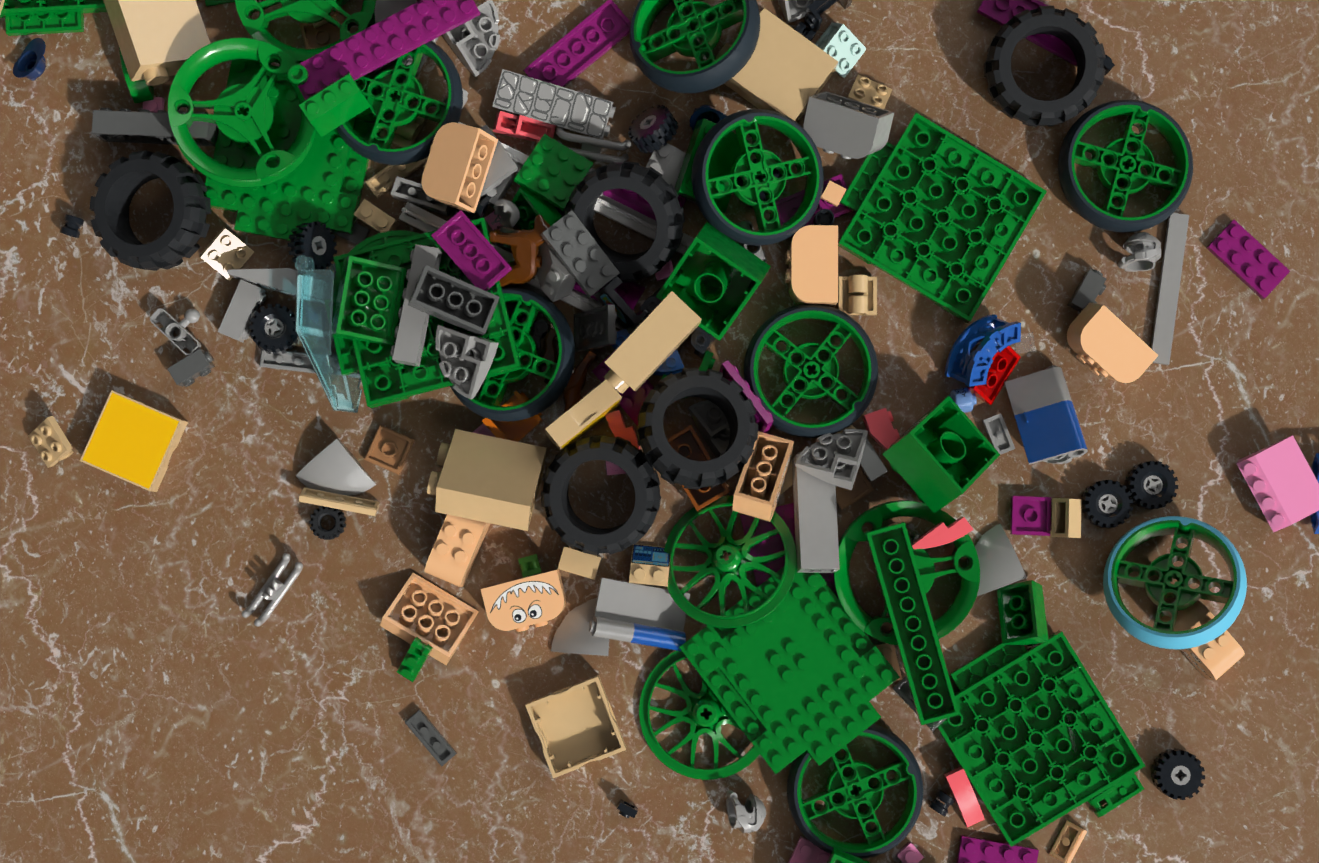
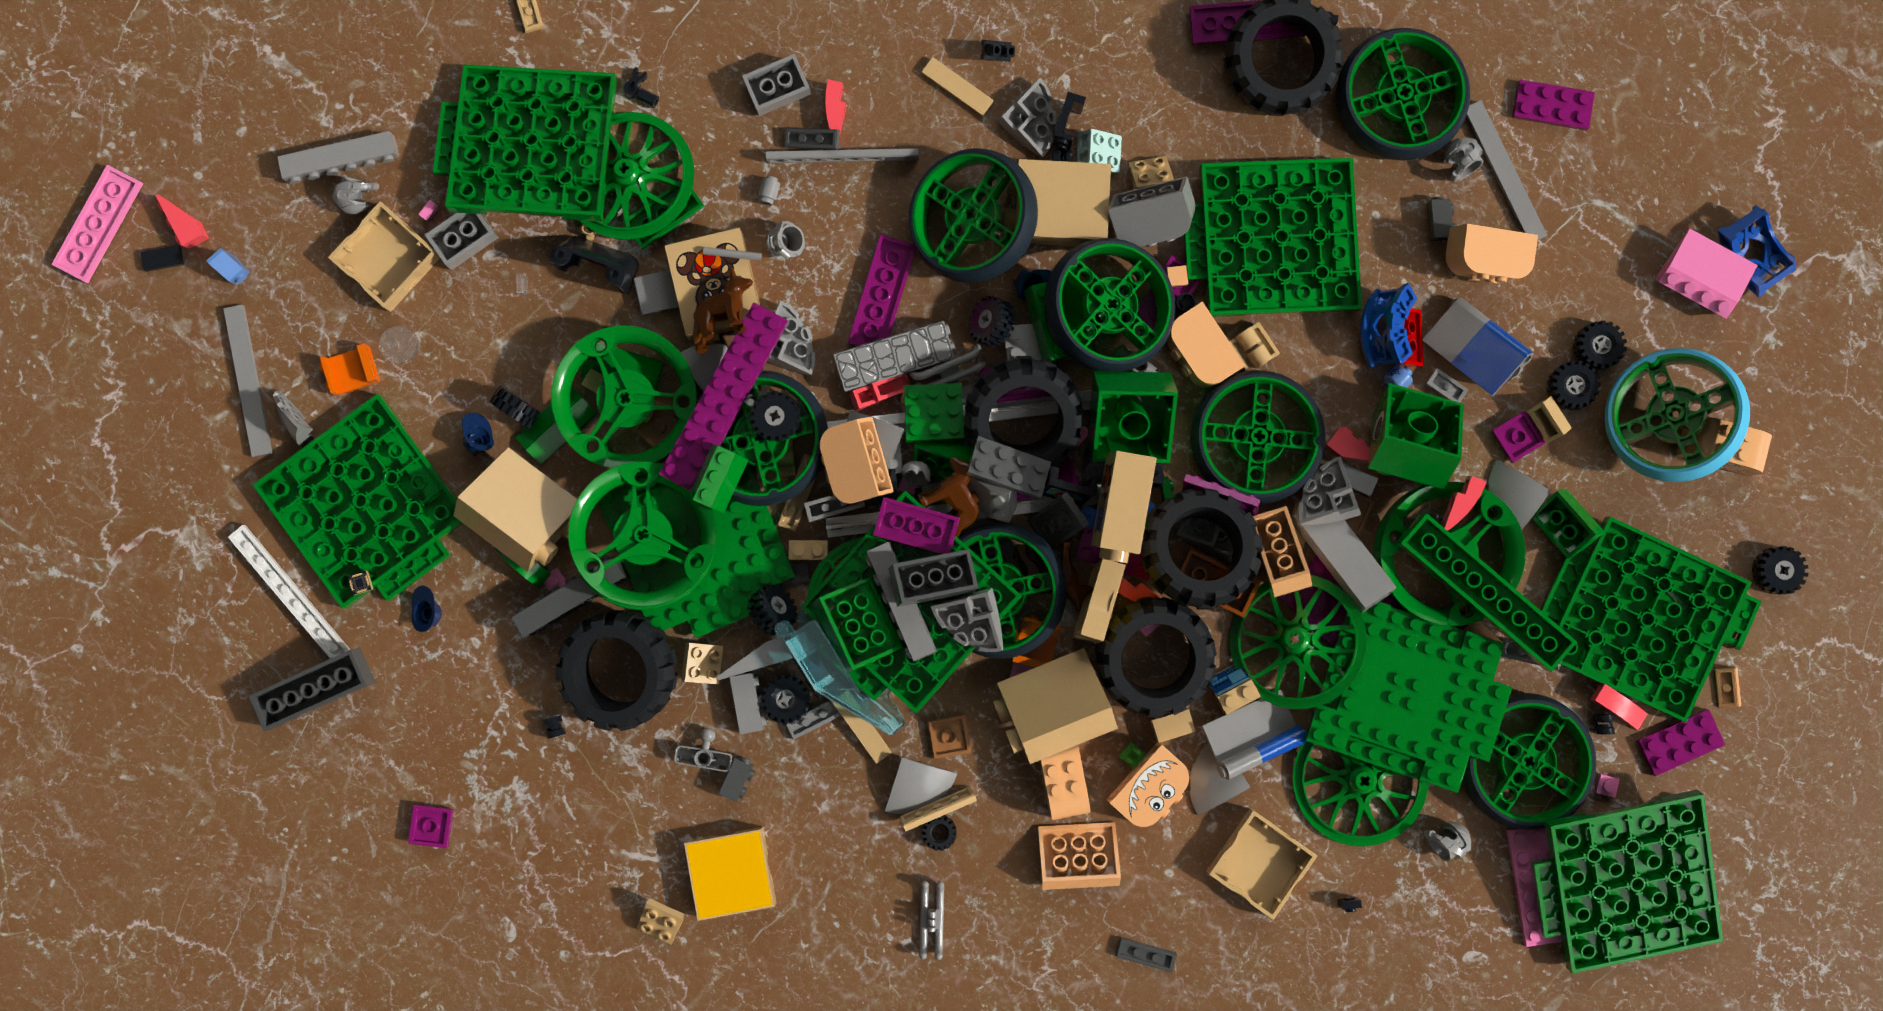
camera: 35 degrees left, 0 degrees up
(298, 74) = (671, 474): green tile -> none
(322, 408) = (866, 734): none -> tan tile
(414, 659) = (1091, 898): green plate -> none
(421, 92) = (784, 421): none -> black wheel

